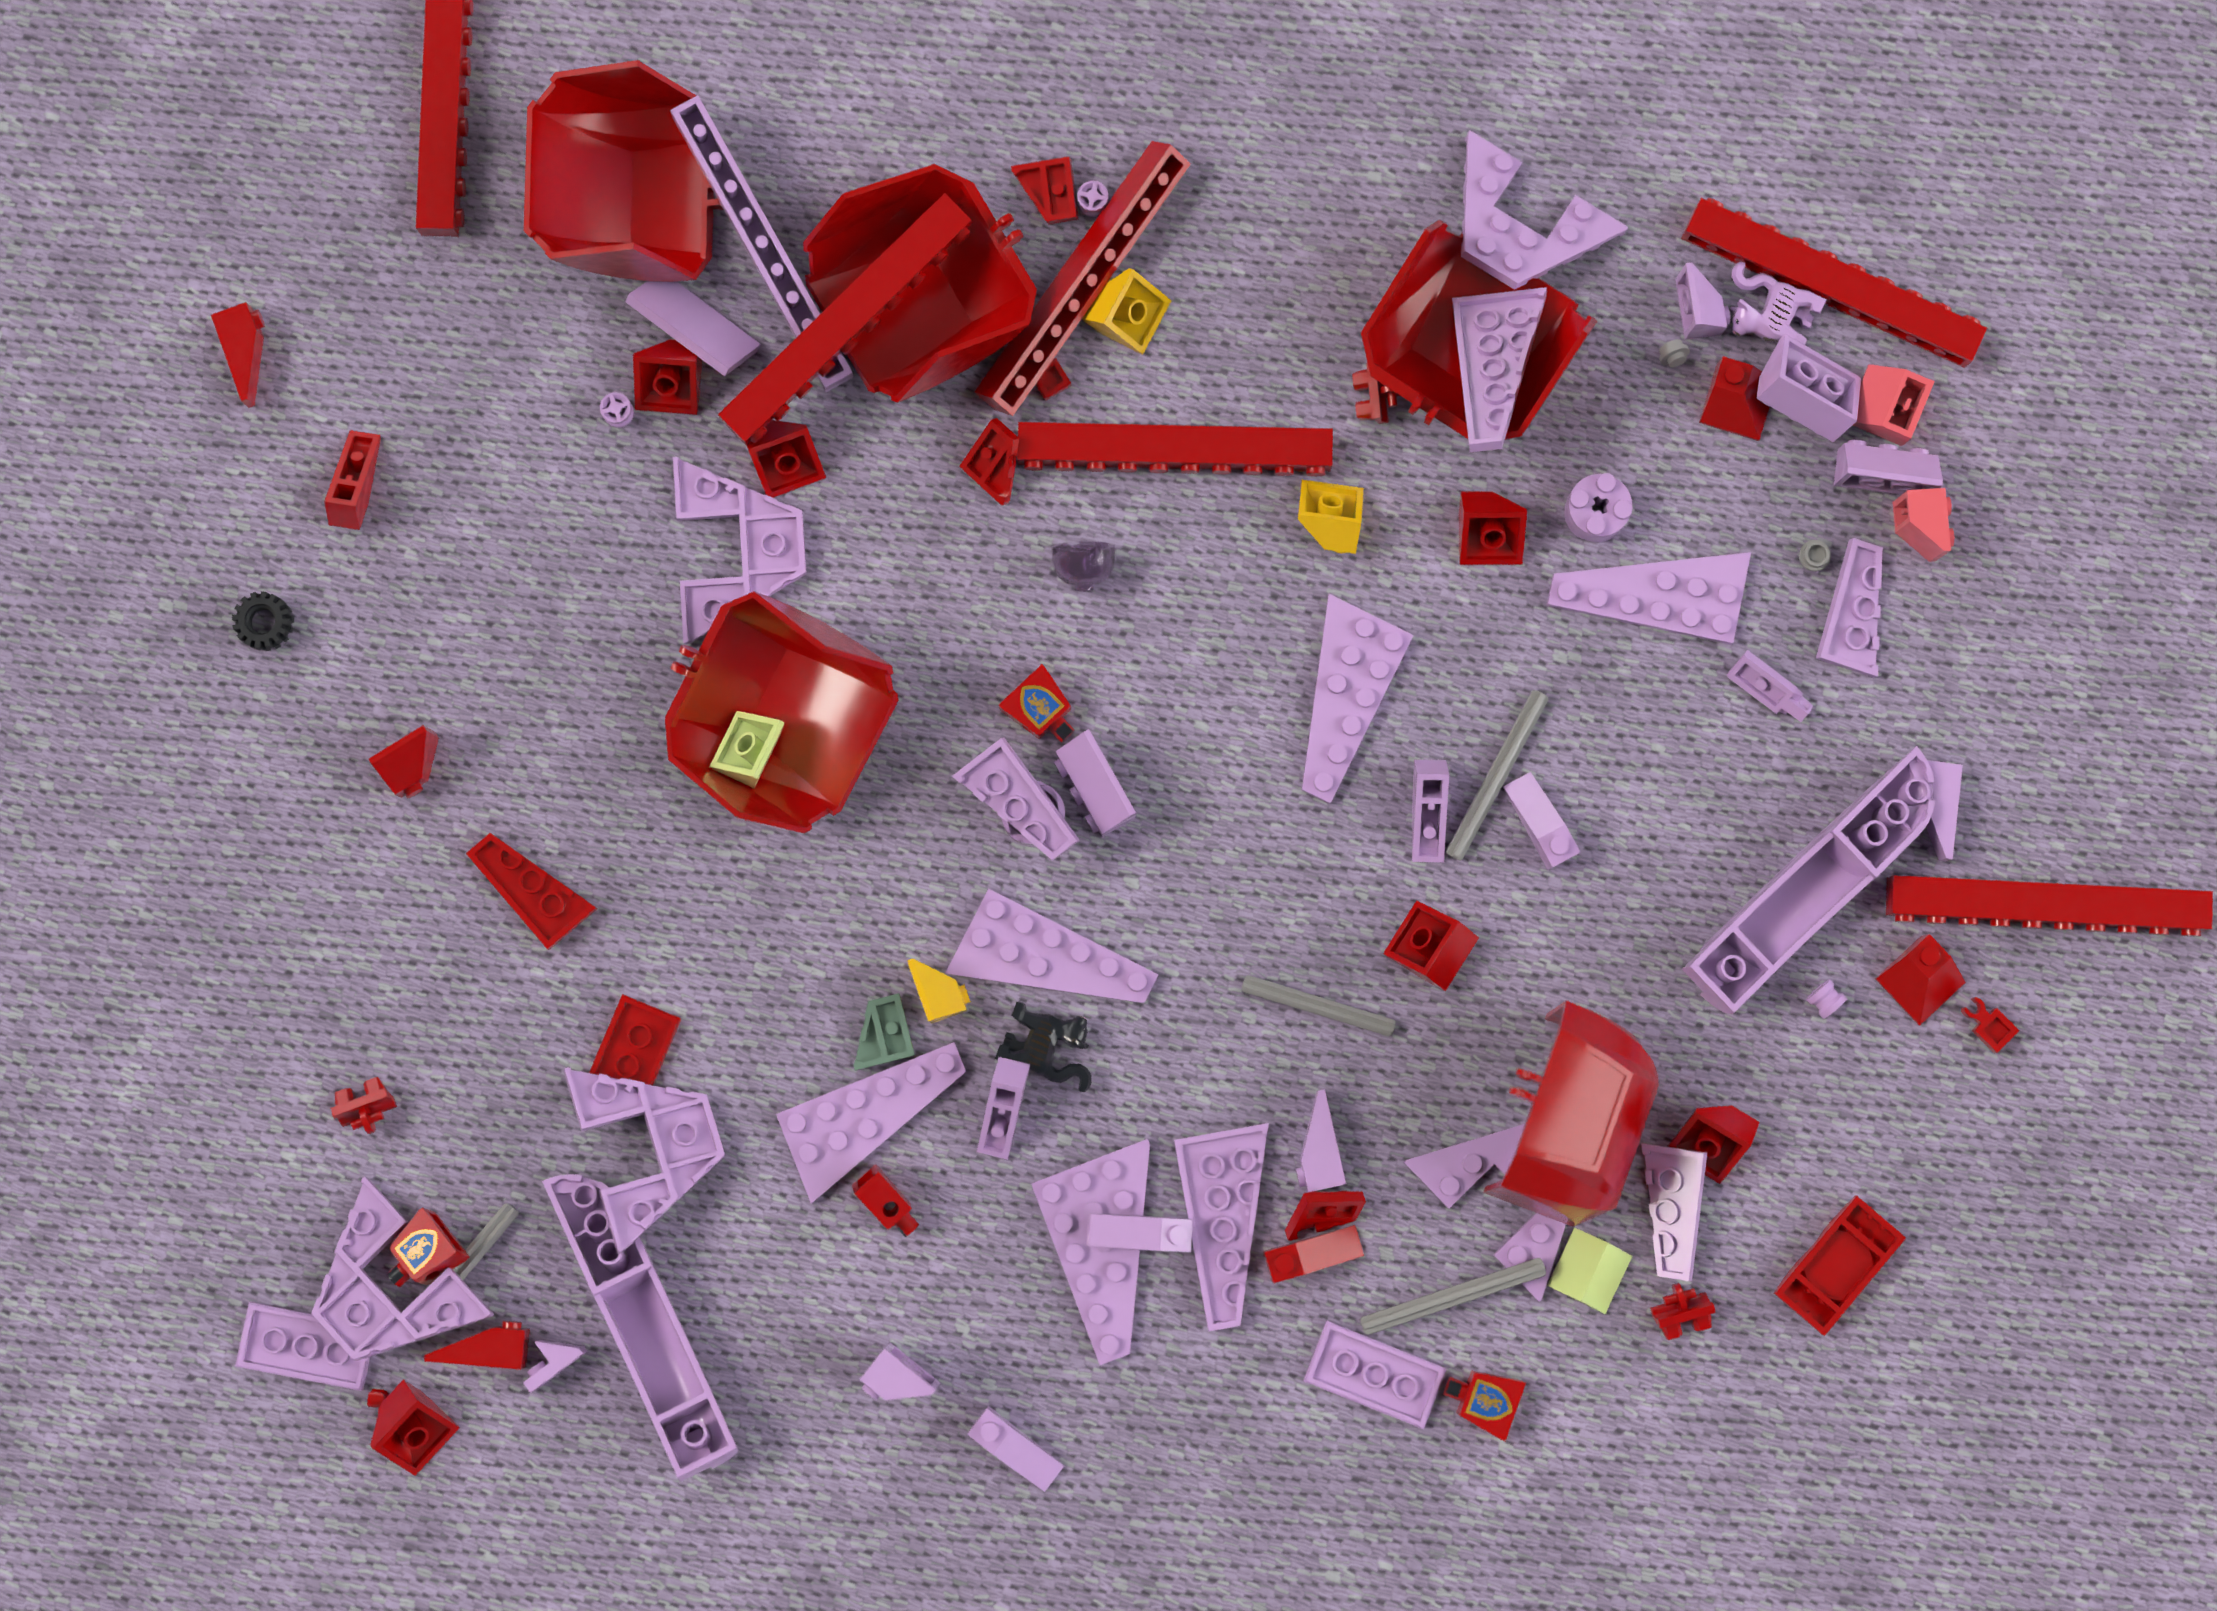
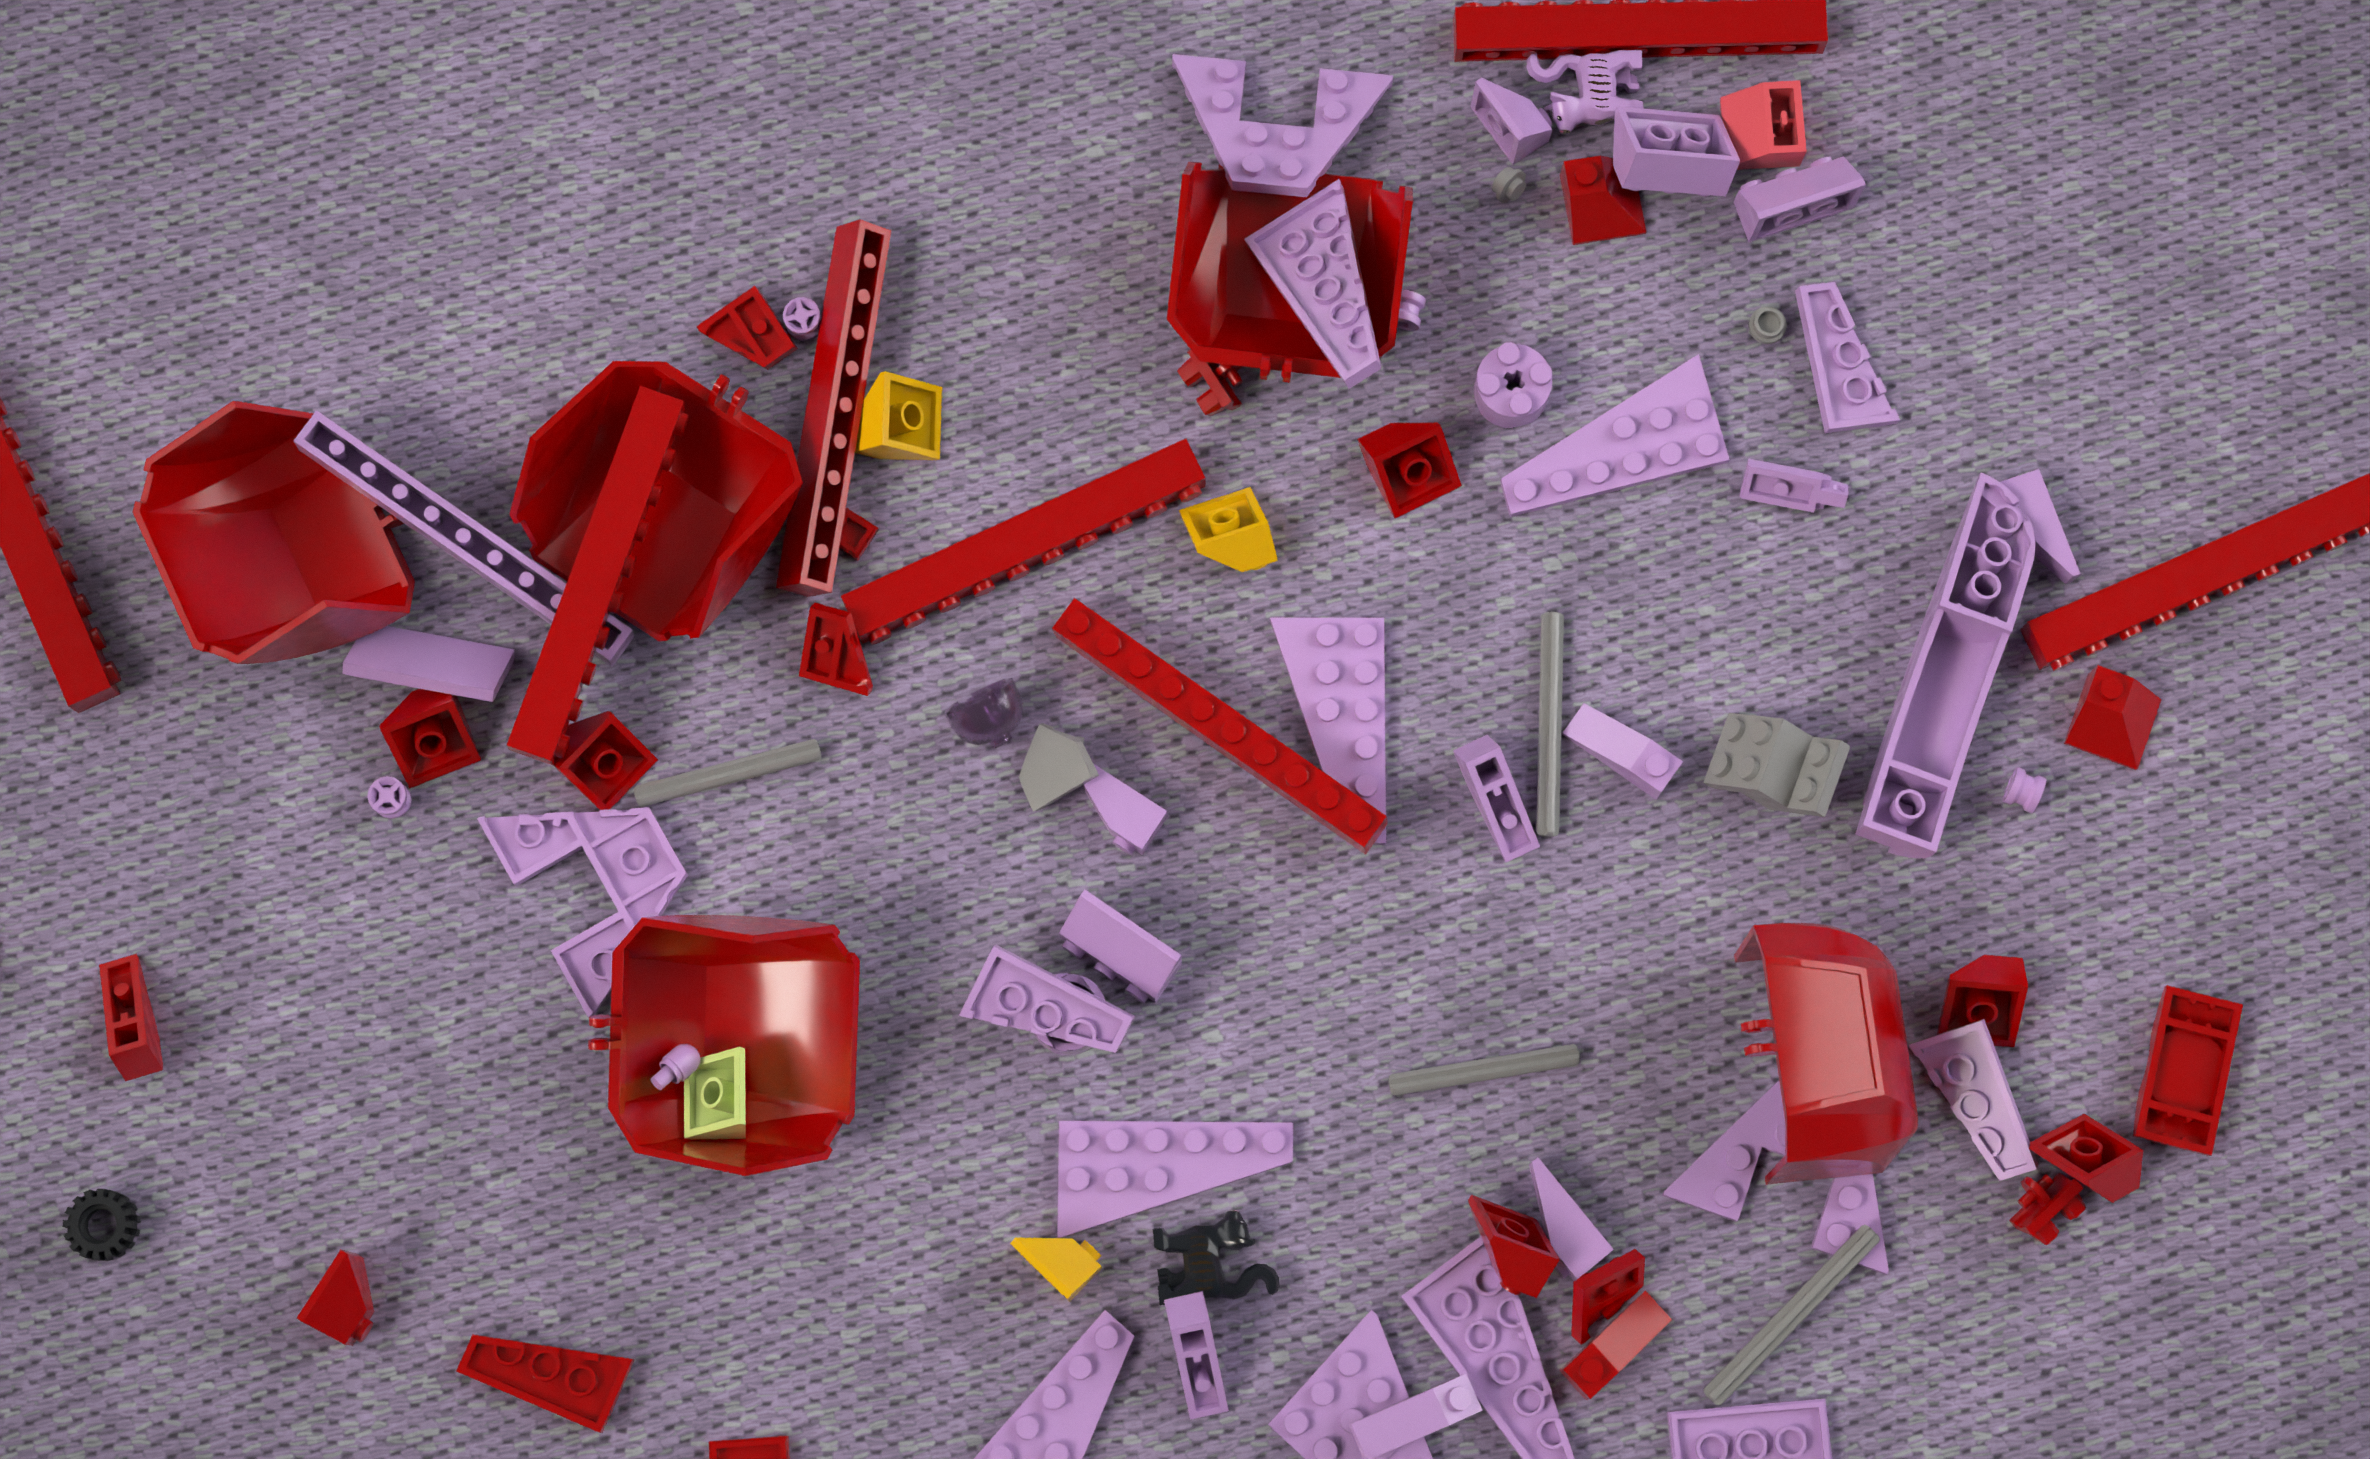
camera: 25 degrees left, 5 degrees down
(729, 711) = (677, 1065): none -> lavender cylinder
(872, 512) = (727, 772): none -> light grey axle
(884, 1033) = (1022, 1339): sand green wing -> none
(1039, 706) = (1016, 893): torso -> none
(1113, 626) = (1054, 766): none -> light grey slope
(1148, 685) = (1125, 812): none -> lavender slope
(1250, 656) = (1220, 726): none -> red brick
(1275, 1145) = (1515, 1247): none -> red slope
(1431, 945) = (1573, 942): red slope -> none
(1487, 1400) = (1887, 1411): torso -> none
(1549, 412) = (1409, 310): none -> lavender wheel
(1589, 1270) = (1923, 1211): yellowish green slope -> none
(1650, 889) = (1777, 764): none -> light grey bracket
(1734, 1293) = (2093, 1156): none -> red slope
(1923, 521) = (1865, 233): coral slope -> none
(1993, 1027) = (2214, 733): red plate -> none

